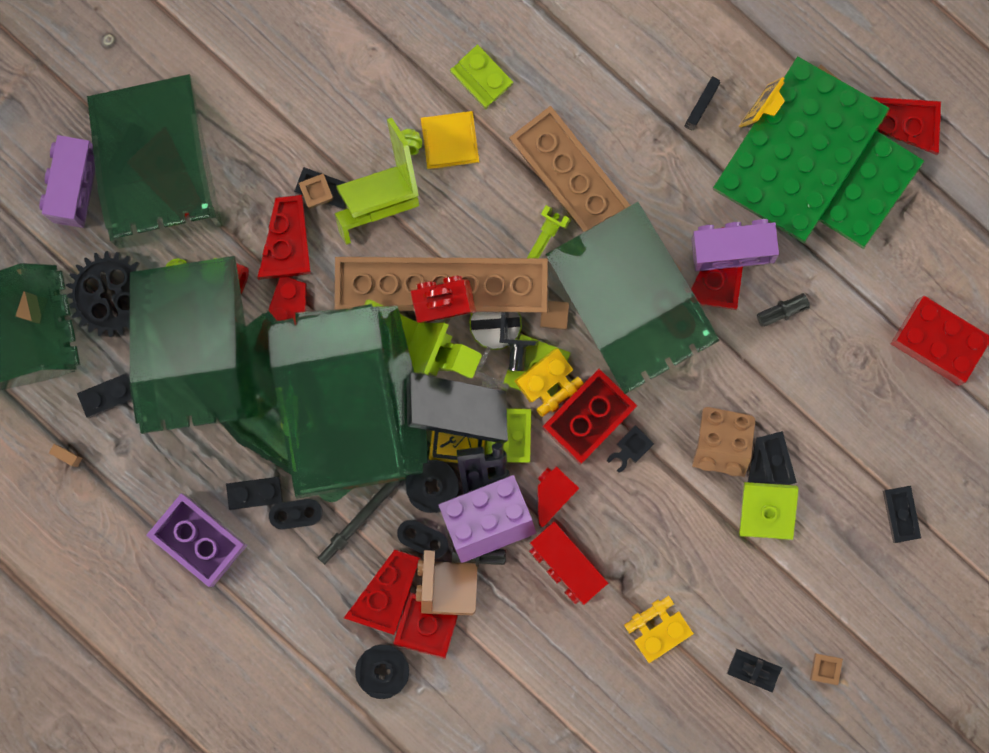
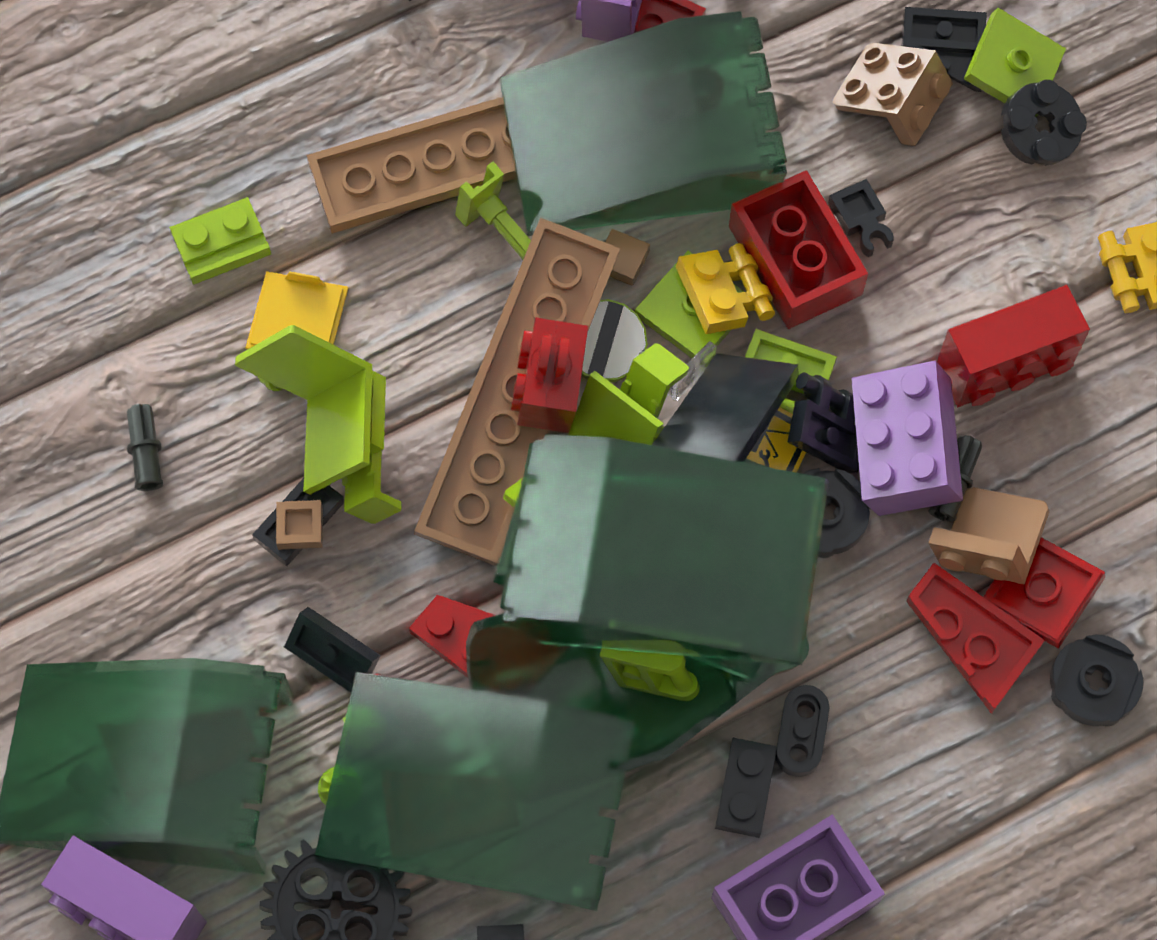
camera: 70 degrees left, 15 degrees down
(252, 237) = (330, 649): none -> black plate
(286, 241) = (359, 598): red wing -> none
(337, 85) = (144, 447): none -> pearl dark grey axle
(339, 540) = (865, 677): pearl dark grey bar -> none
(423, 538) = (901, 552): black plate -> none
(517, 347) = (656, 312): black bracket -> none
(553, 493) = (893, 337): red slope -> none
(724, 526) = (1058, 108): none -> black plate

